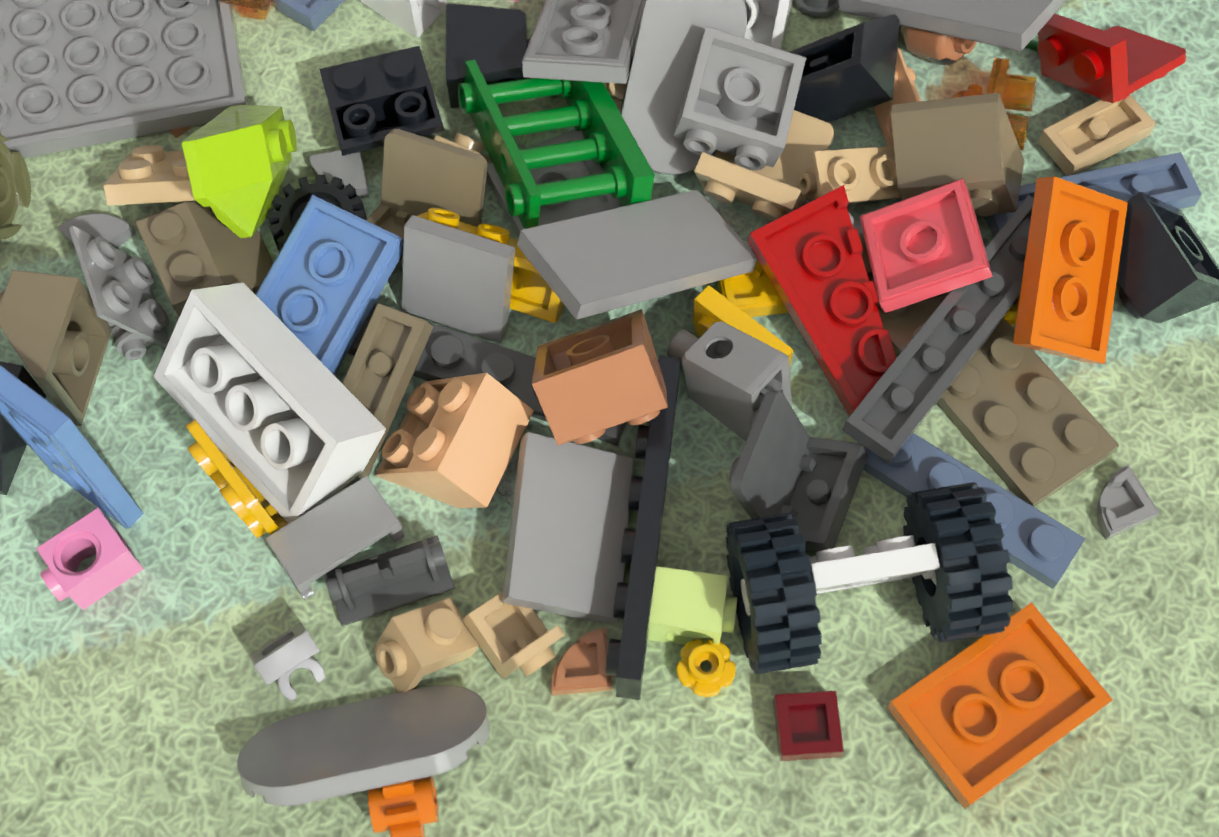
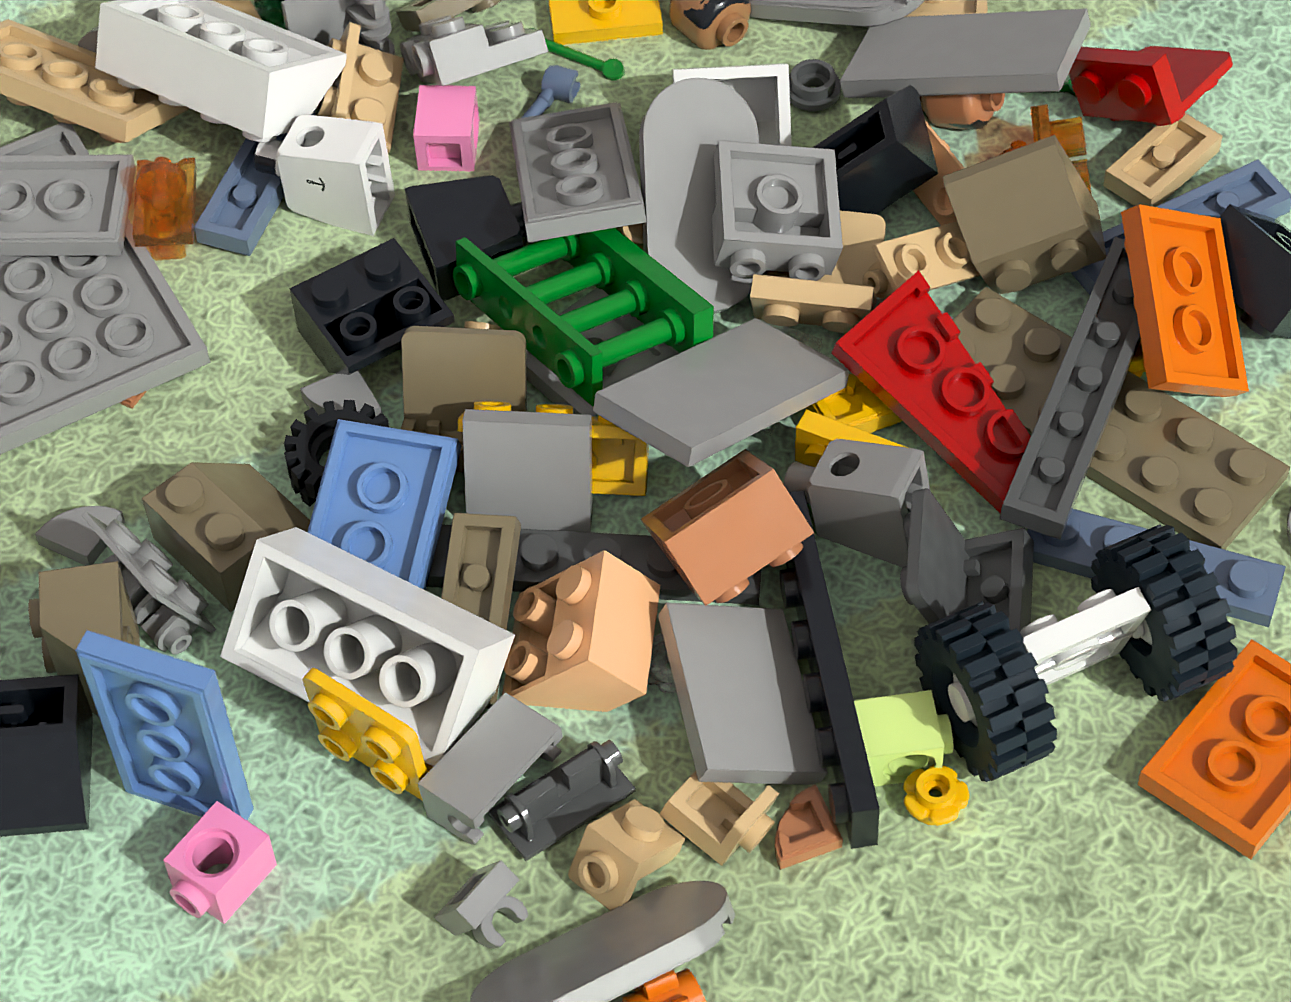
camera: 15 degrees left, 10 degrees down
(149, 177) = (140, 448): tan plate -> none
(240, 164) = (255, 399): lime wedge -> none
(808, 726) = (1062, 821): dark red plate -> none
(925, 246) = (1023, 313): coral plate -> none

